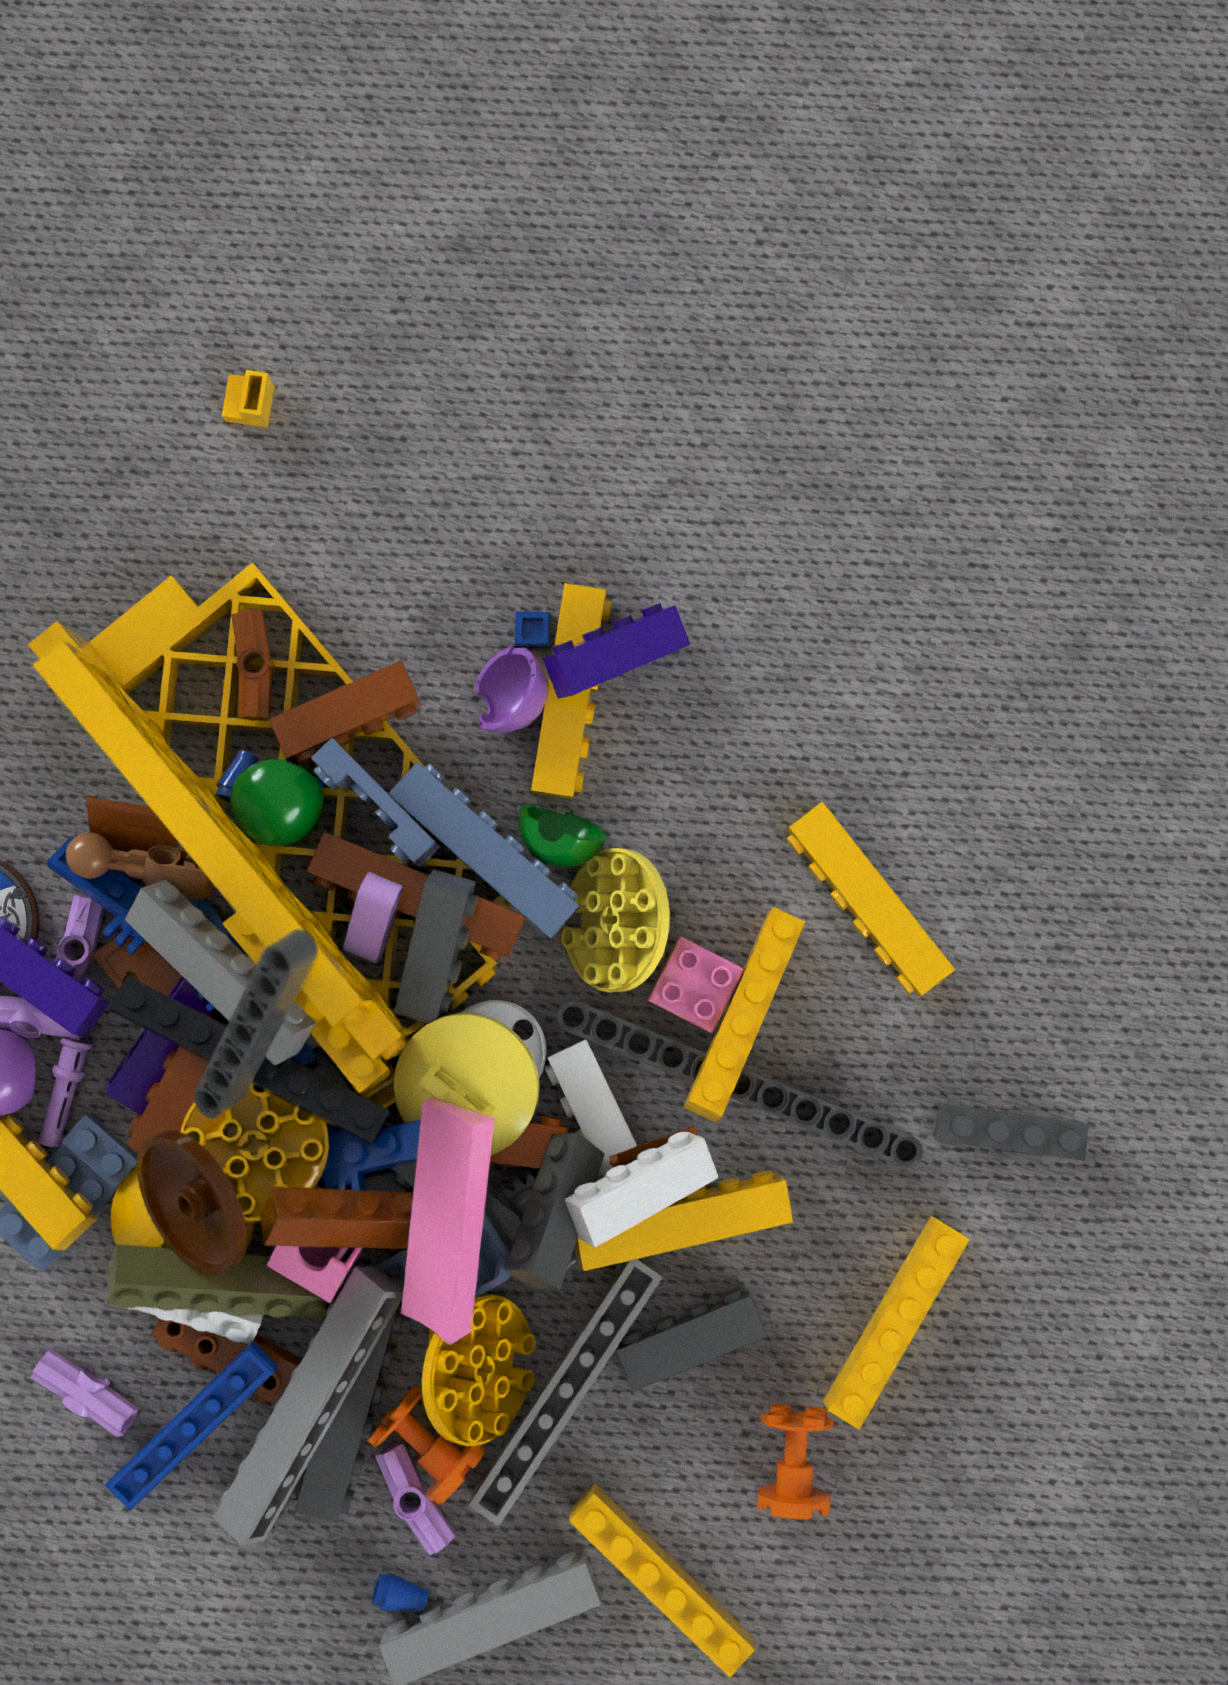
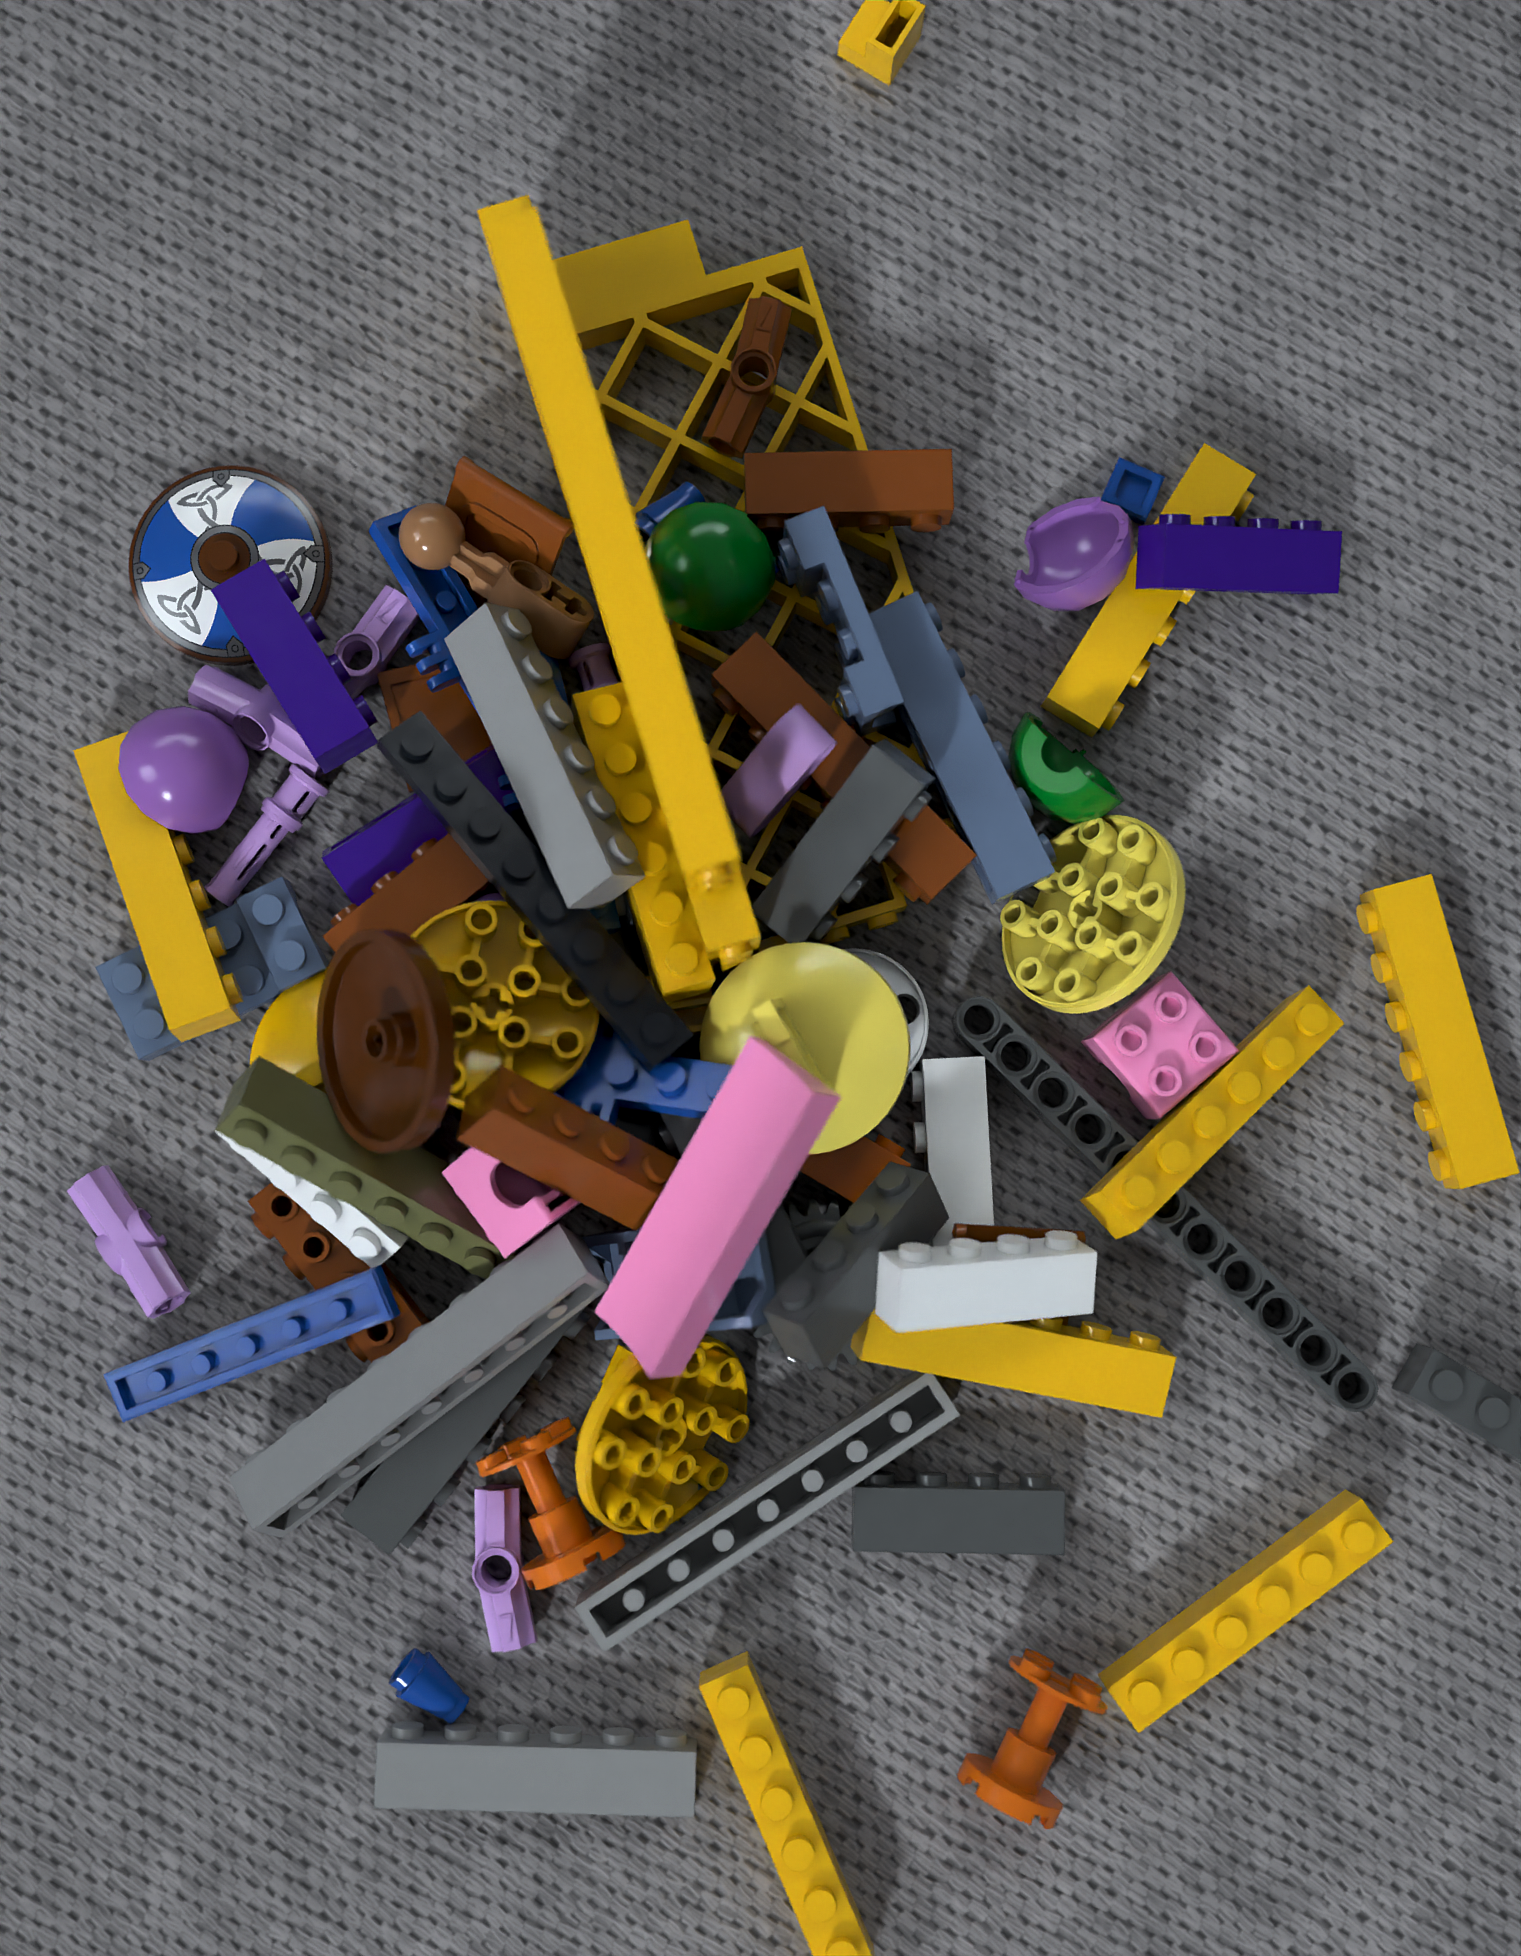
camera: 25 degrees right, 0 degrees up
(255, 1022) = (580, 827): dark grey beam -> none

